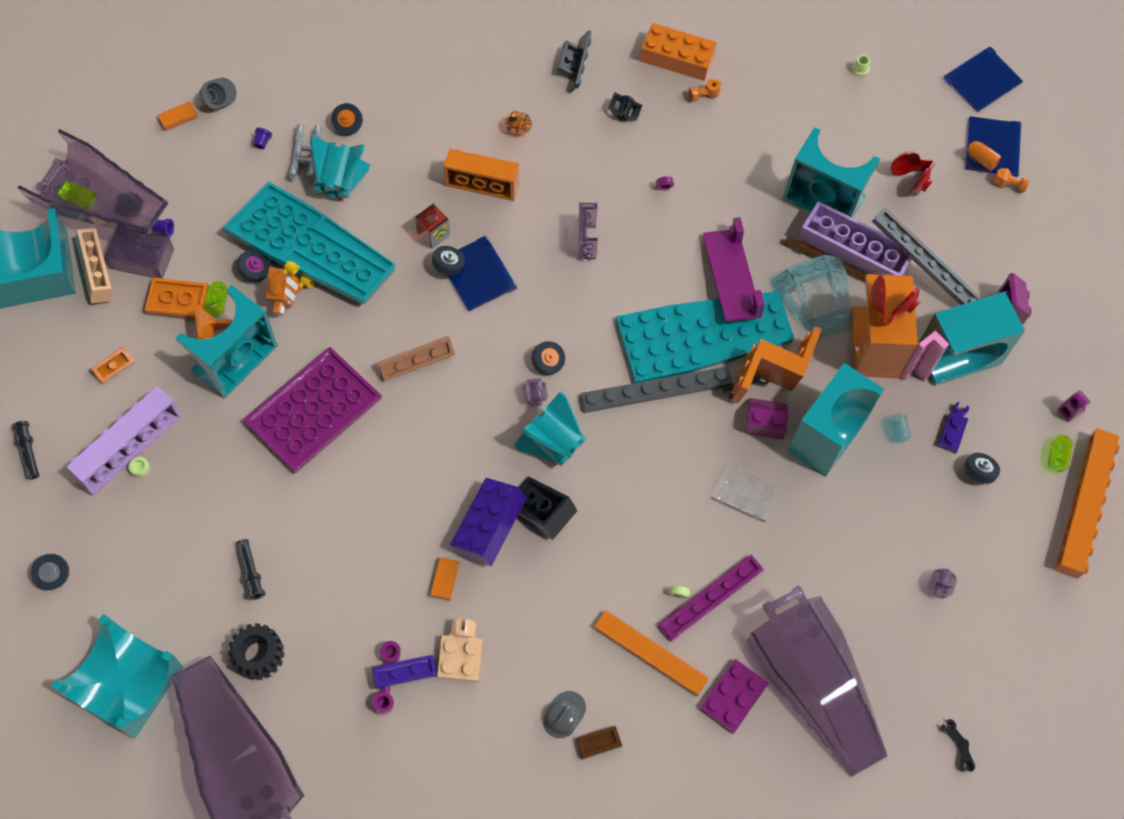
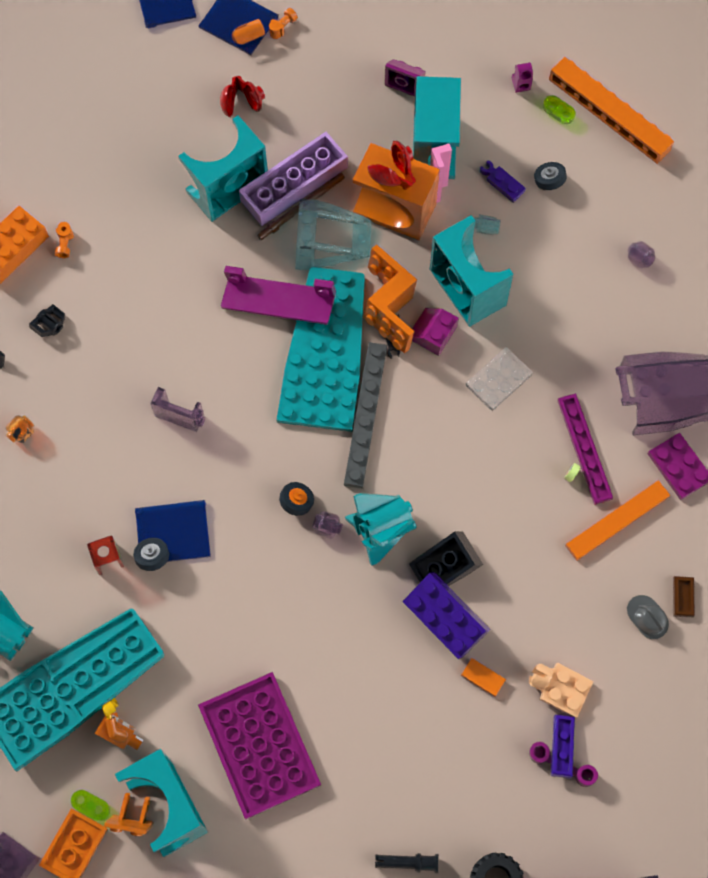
camera: 65 degrees left, 5 degrees up
(253, 266) = (71, 753): black wheel -> none
(416, 358) = (245, 624): nougat plate -> none
(481, 174) = (67, 485): orange brick -> none
(664, 183) = (152, 318): magenta tile -> none
(861, 66) = (101, 95): yellowish green piece -> none
(924, 257) = (344, 126): dark grey plate -> none

